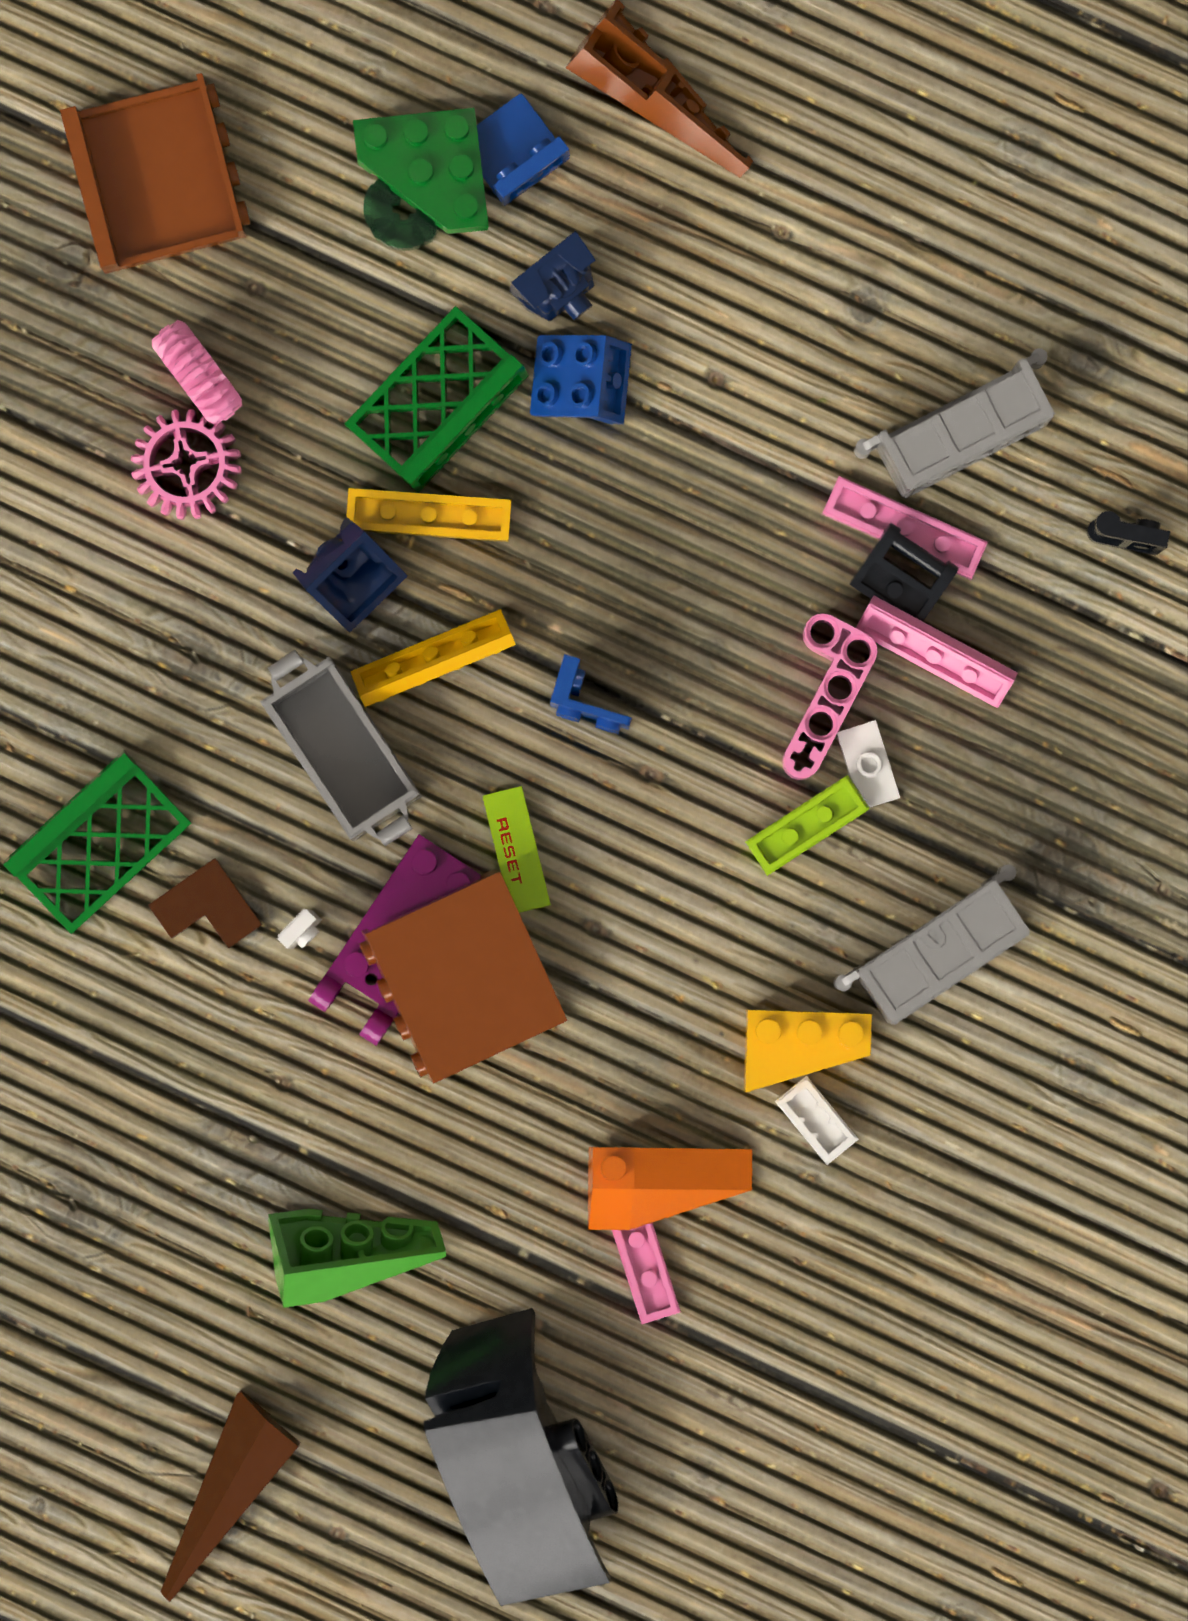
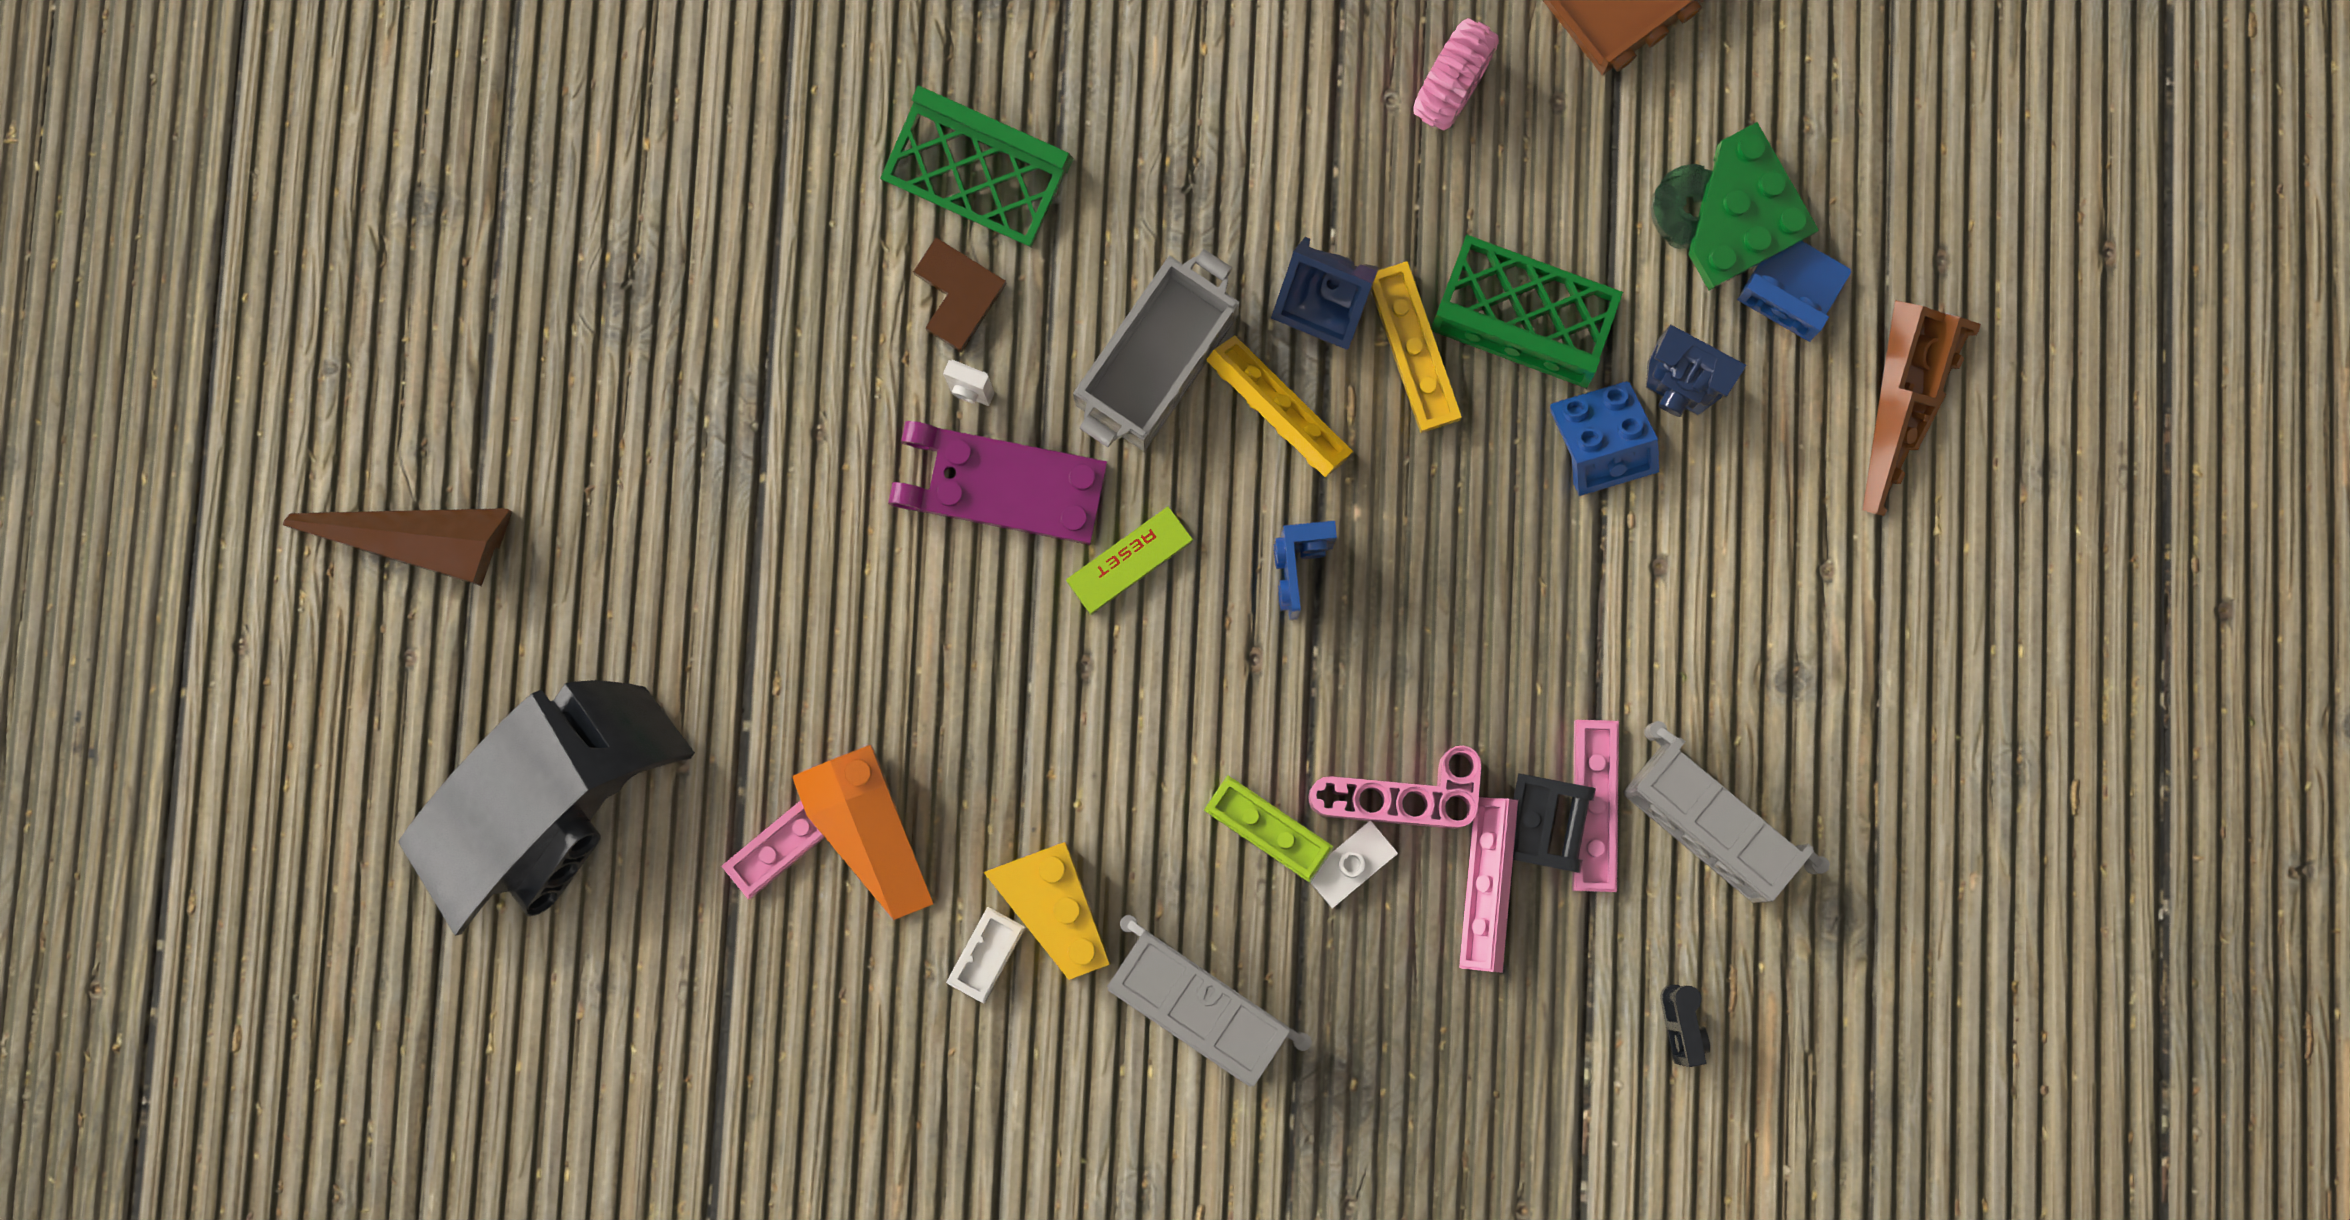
camera: 65 degrees right, 5 degrees down
(167, 467) = (1349, 74): bright pink gear -> none
(336, 1255) = (673, 547): bright green wedge -> none
(463, 977) = (984, 555): dark orange panel -> none

